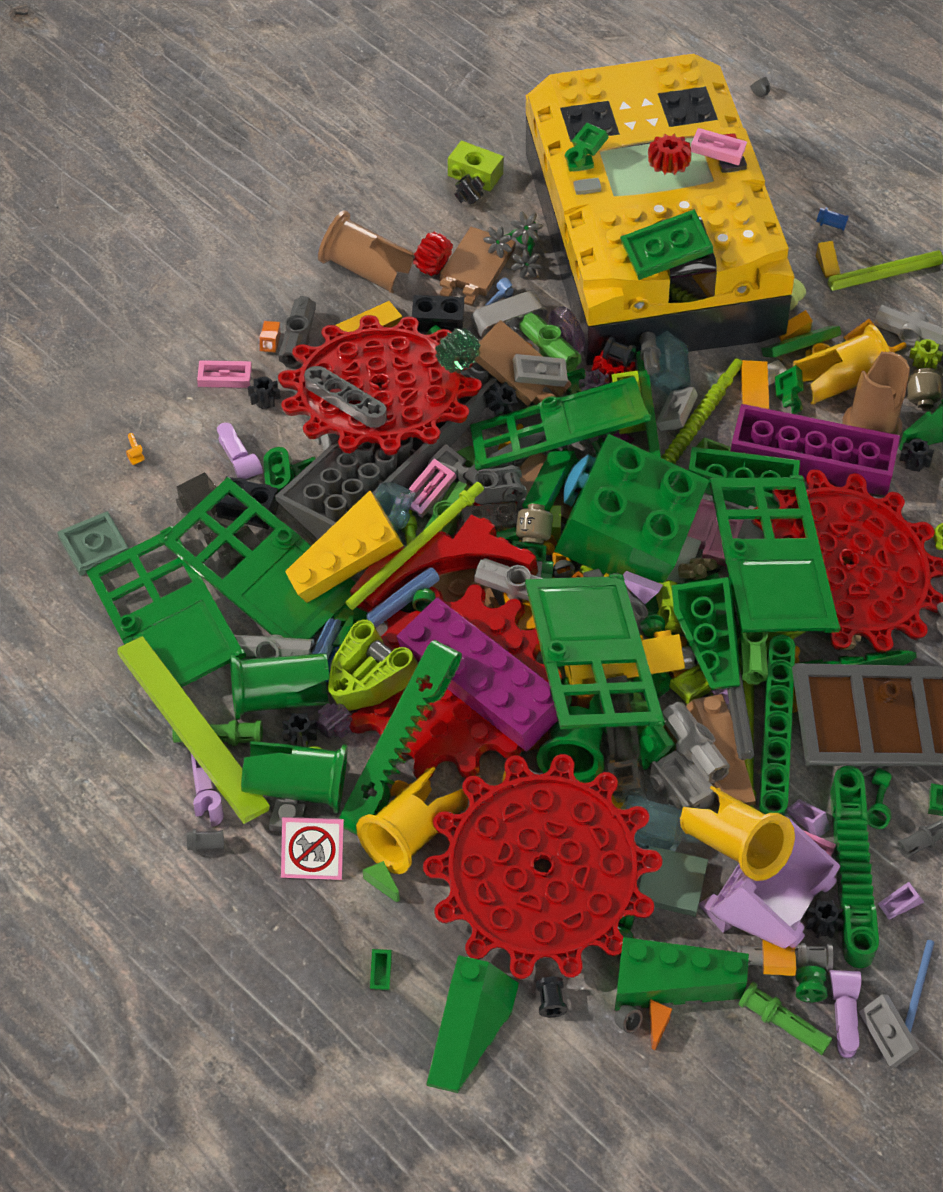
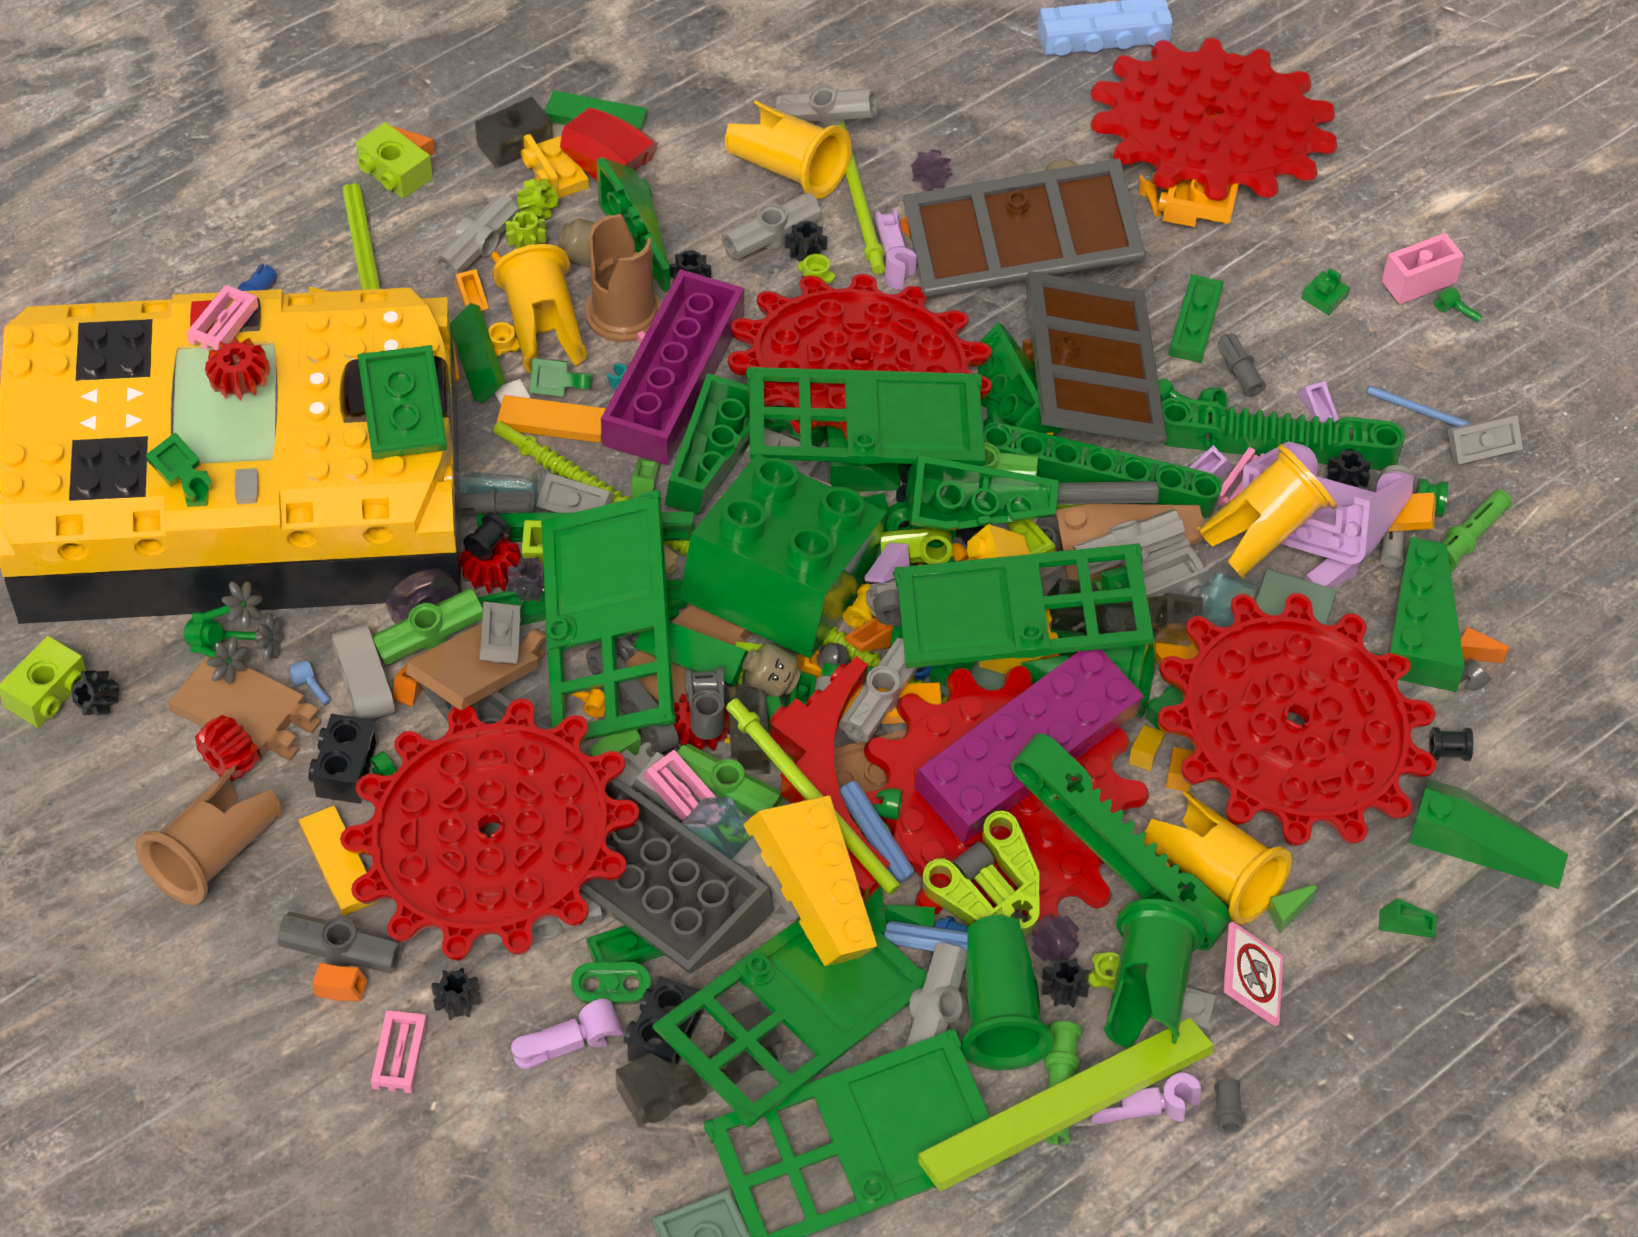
camera: 85 degrees left, 0 degrees up
(135, 453) = (540, 1175): light orange hand -> none
(369, 411) = (520, 858): dark grey beam -> none
(457, 350) = (475, 708): clear green gear -> none
(500, 398) = (533, 686): black gear -> none
(577, 479) = (705, 608): dark azure dish -> none
(652, 624) = (947, 556): green hinge -> none
(846, 991) = (1433, 464): lavender piece -> none

